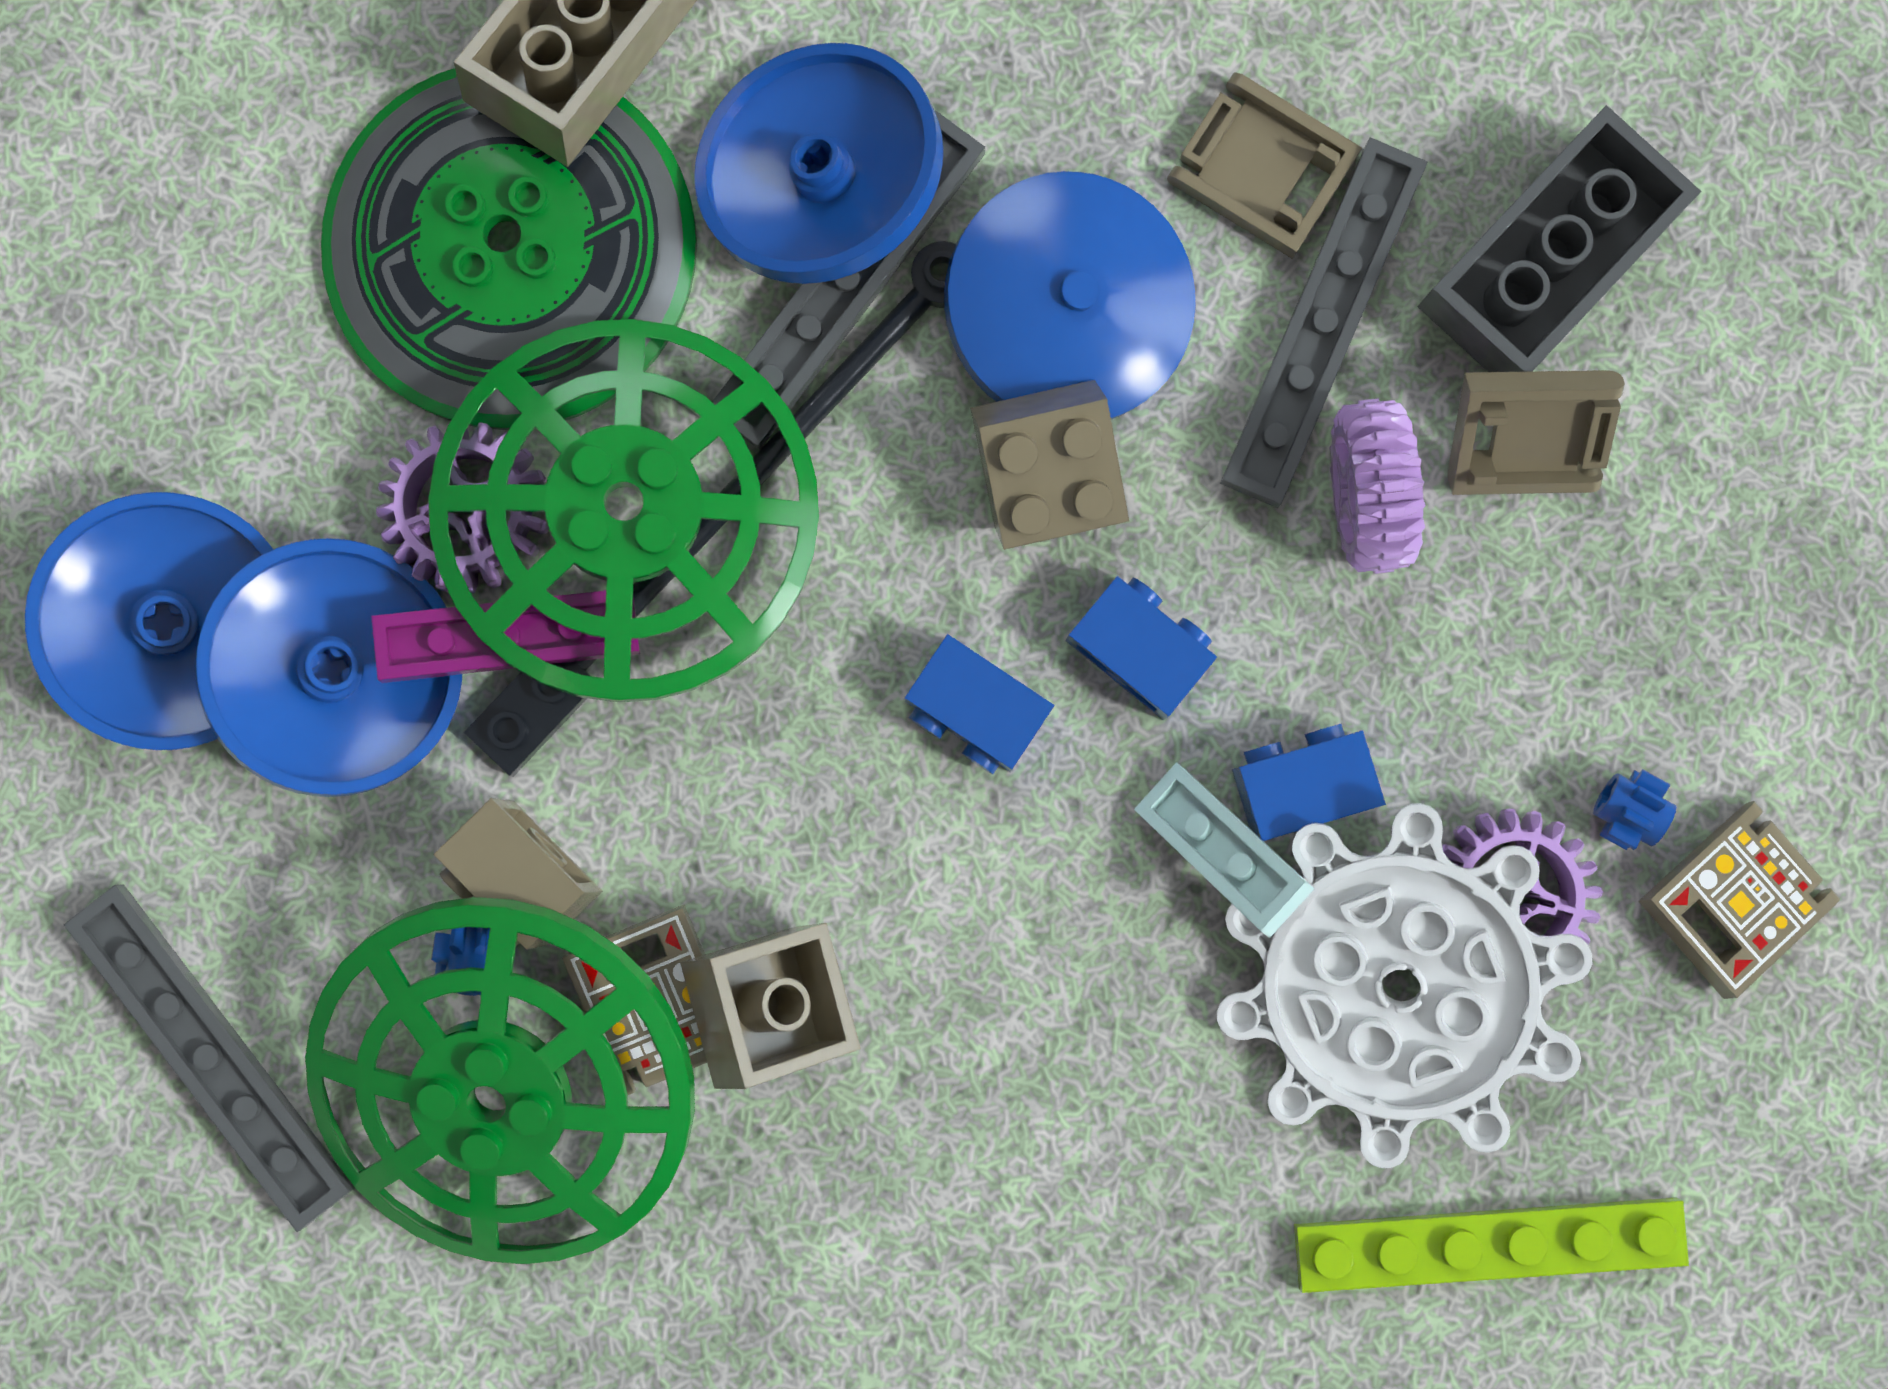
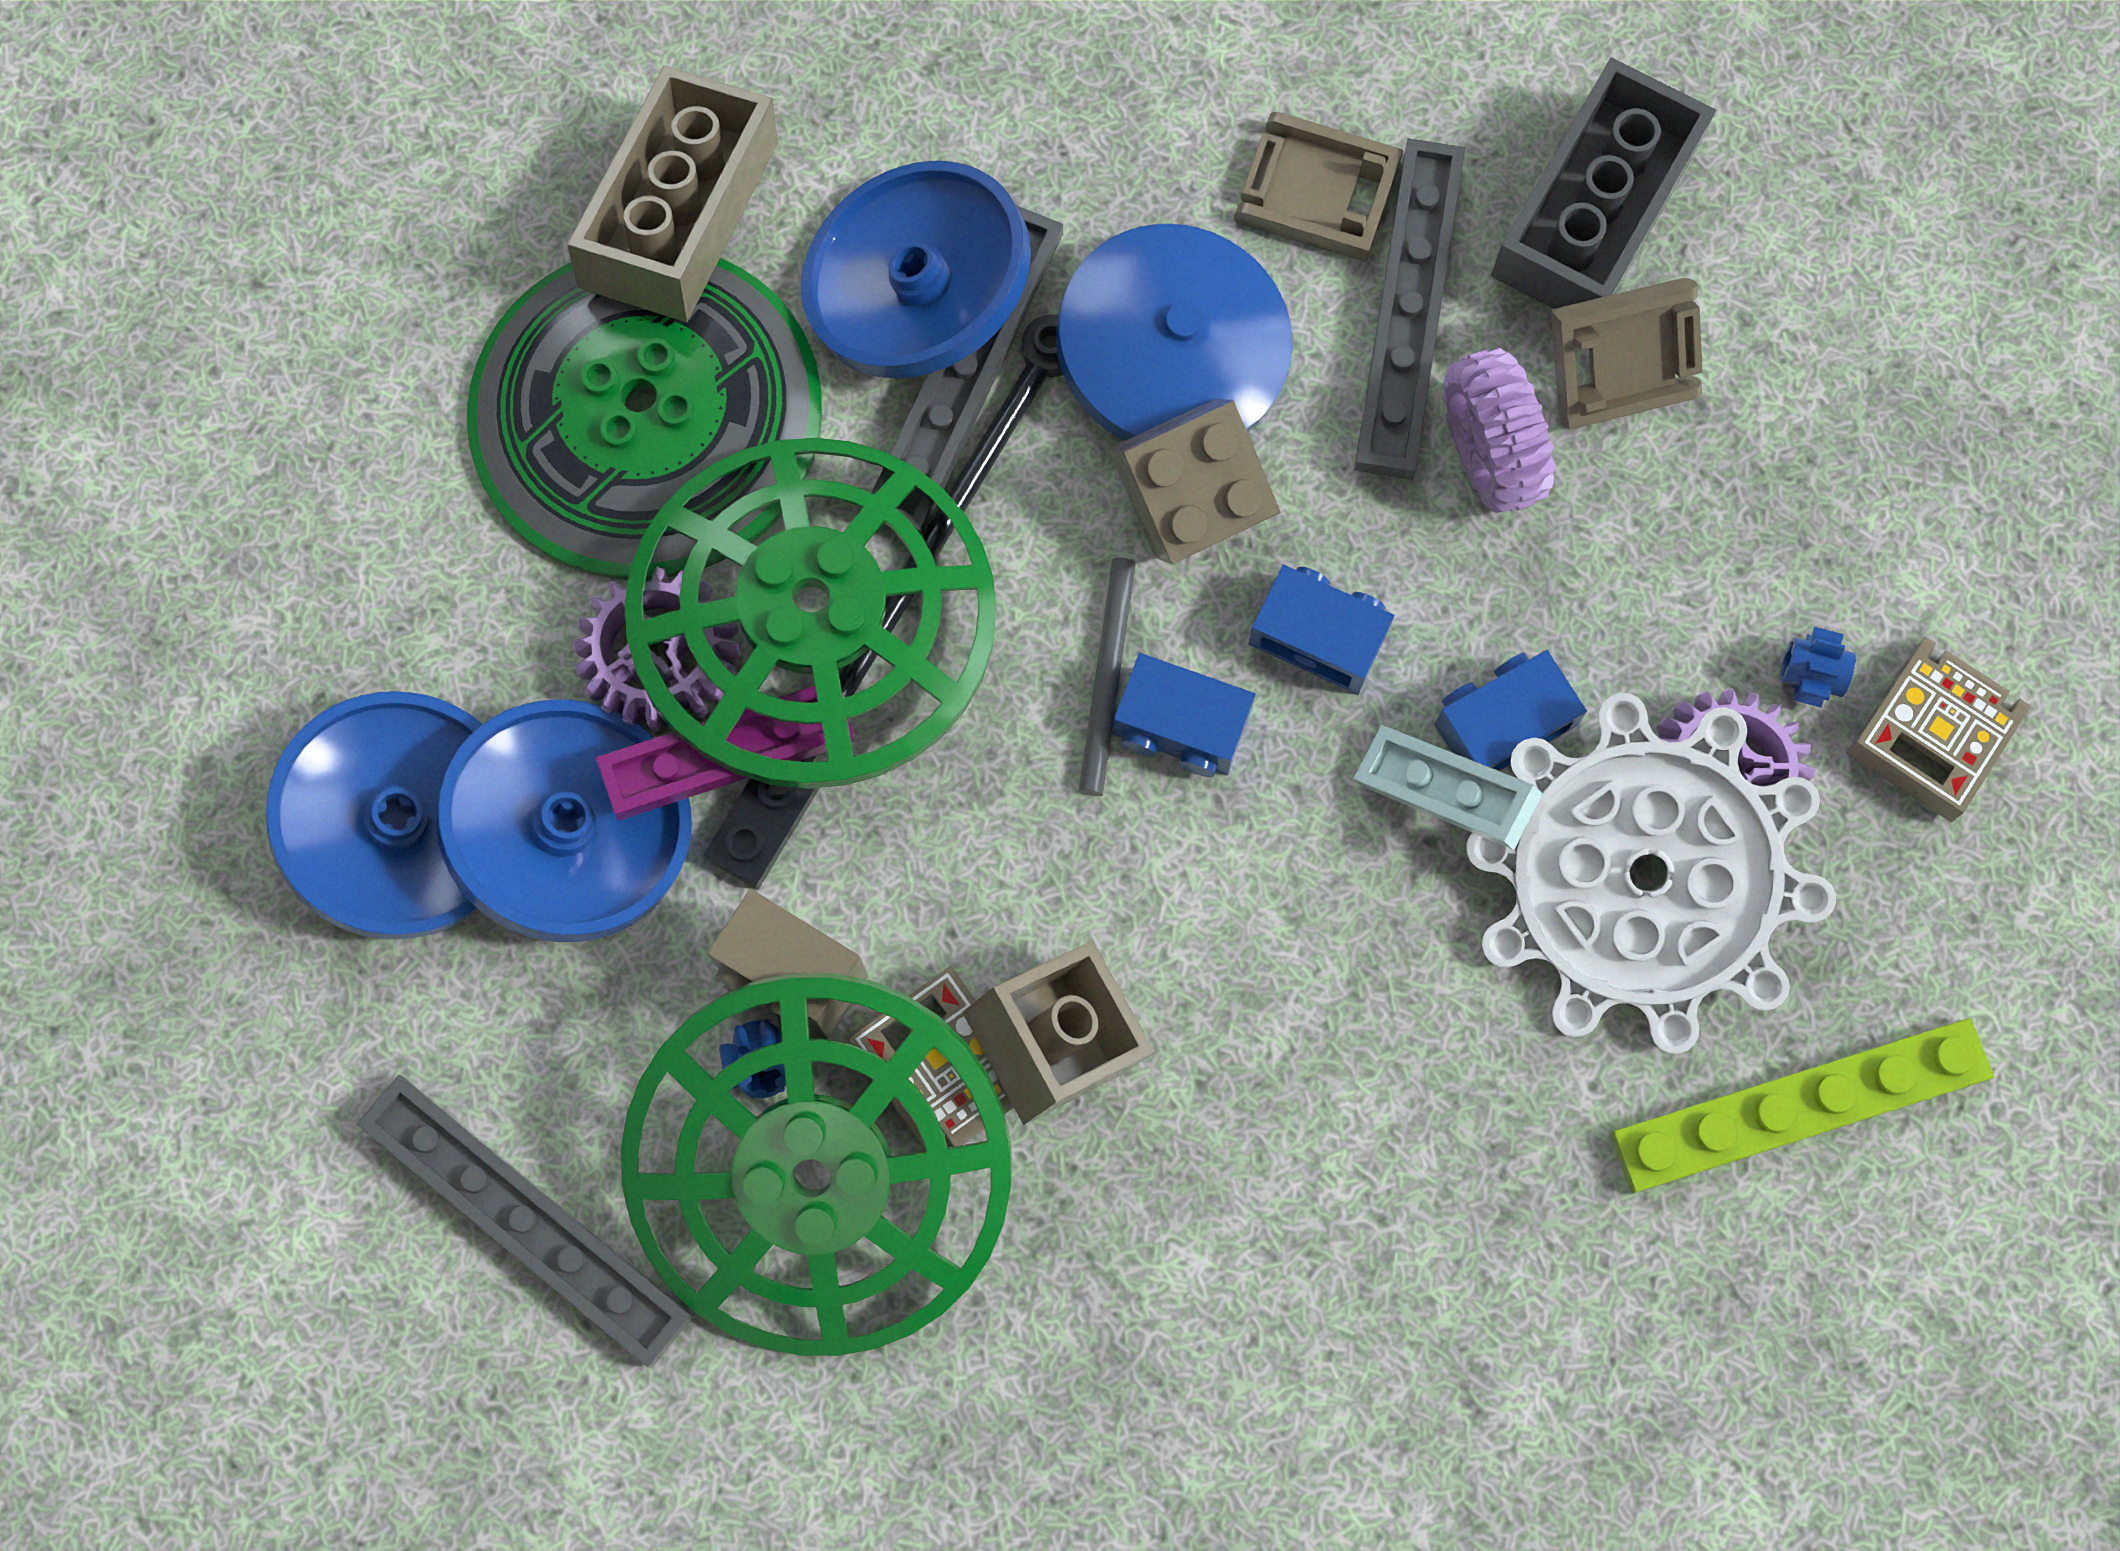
camera: 10 degrees left, 10 degrees down
(913, 641) = (1107, 677): none -> dark grey bar

